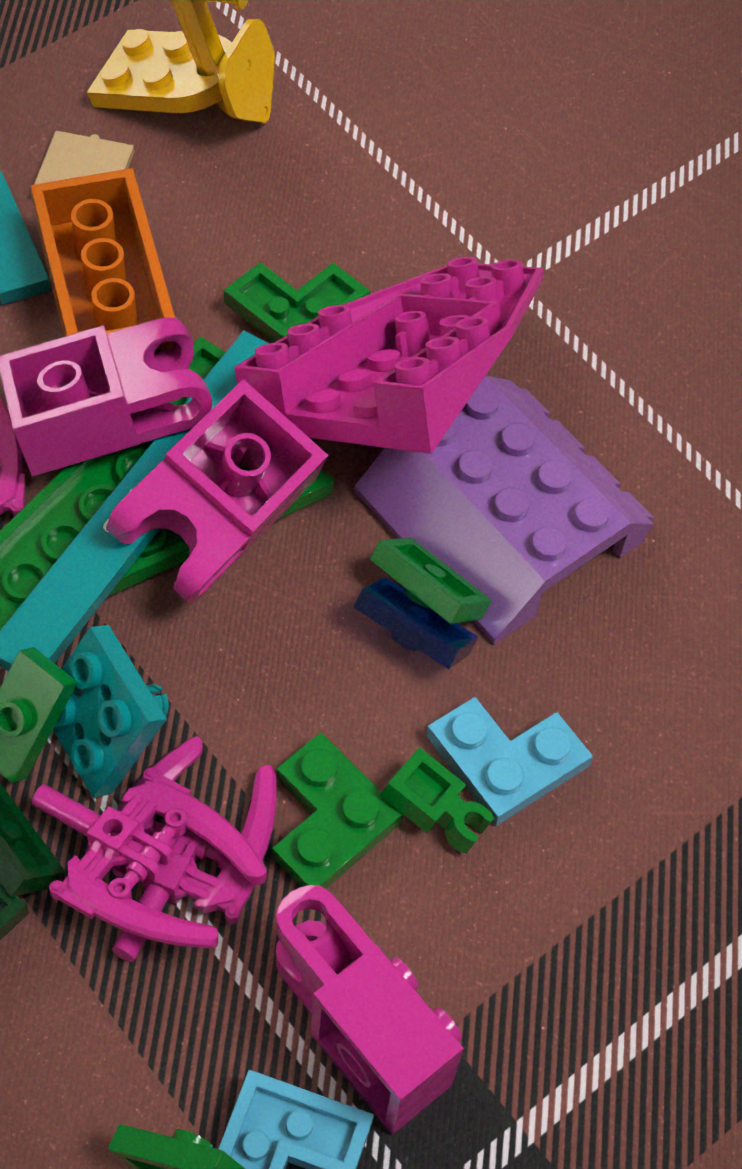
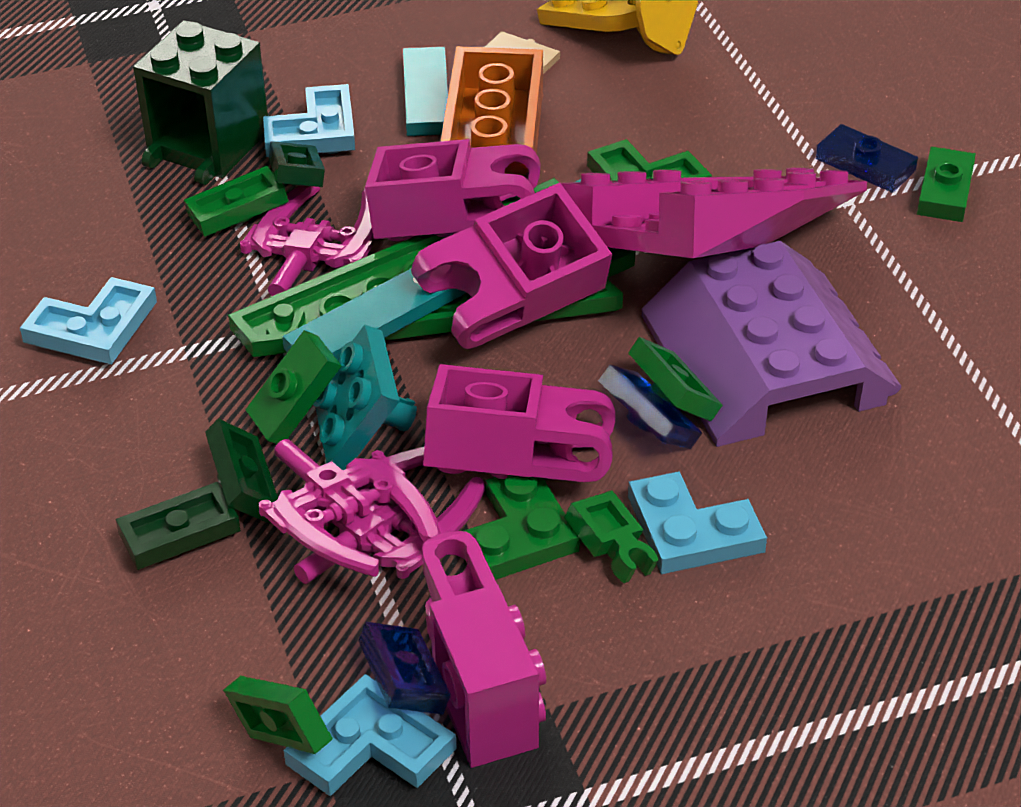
camera: 25 degrees right, 15 degrees down
(288, 1049) = (404, 668): none -> clear blue plate
(291, 698) = (514, 426): none -> dark pink brick
(516, 221) = (867, 158): none -> clear blue plate
(609, 237) = (946, 184): none -> green plate

